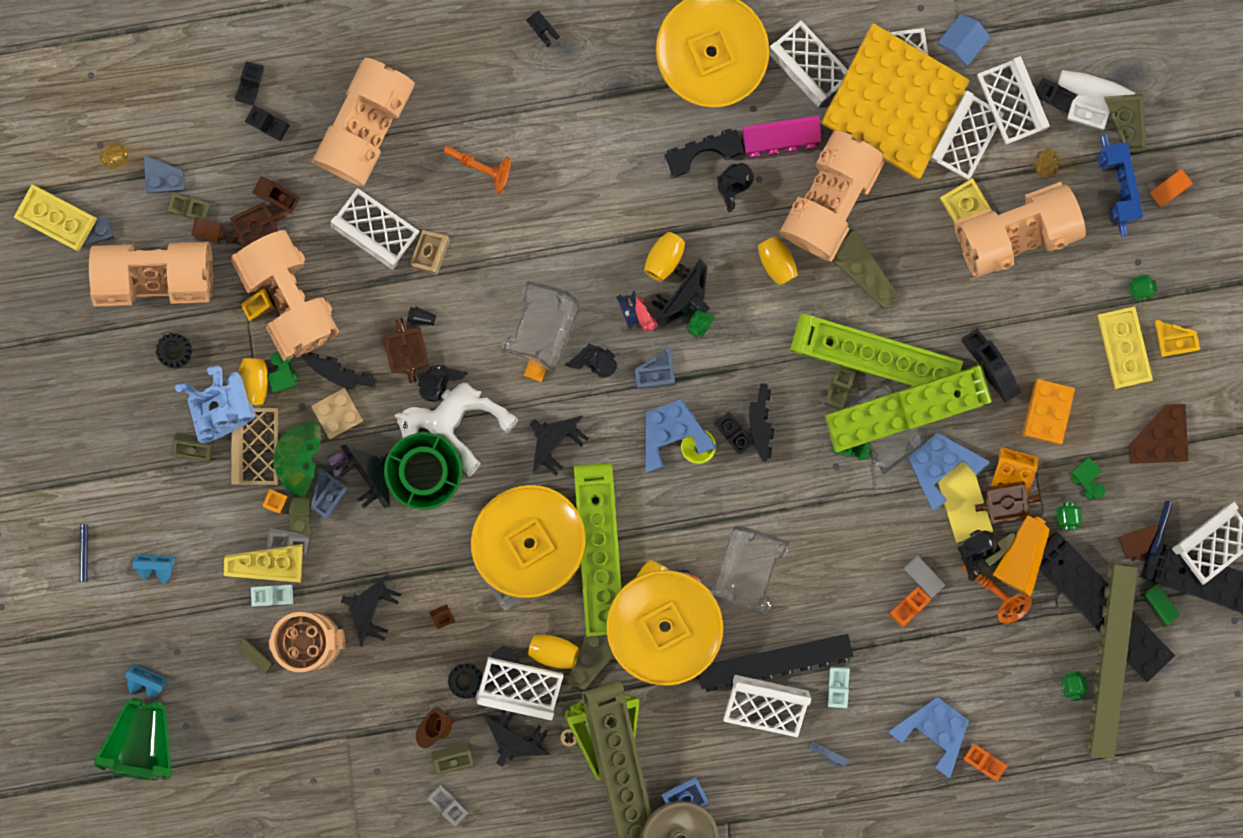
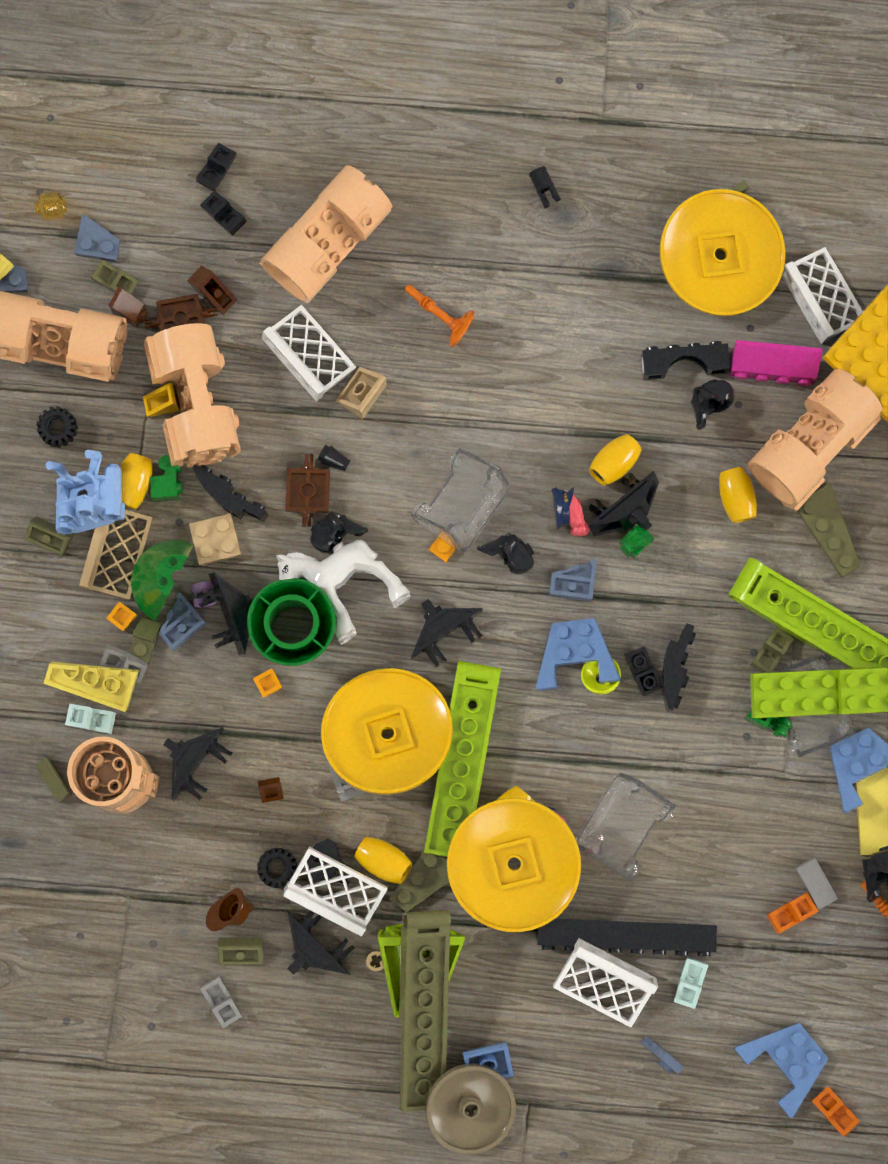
camera: 15 degrees right, 5 degrees down
(415, 526) = (267, 683): none -> light orange plate

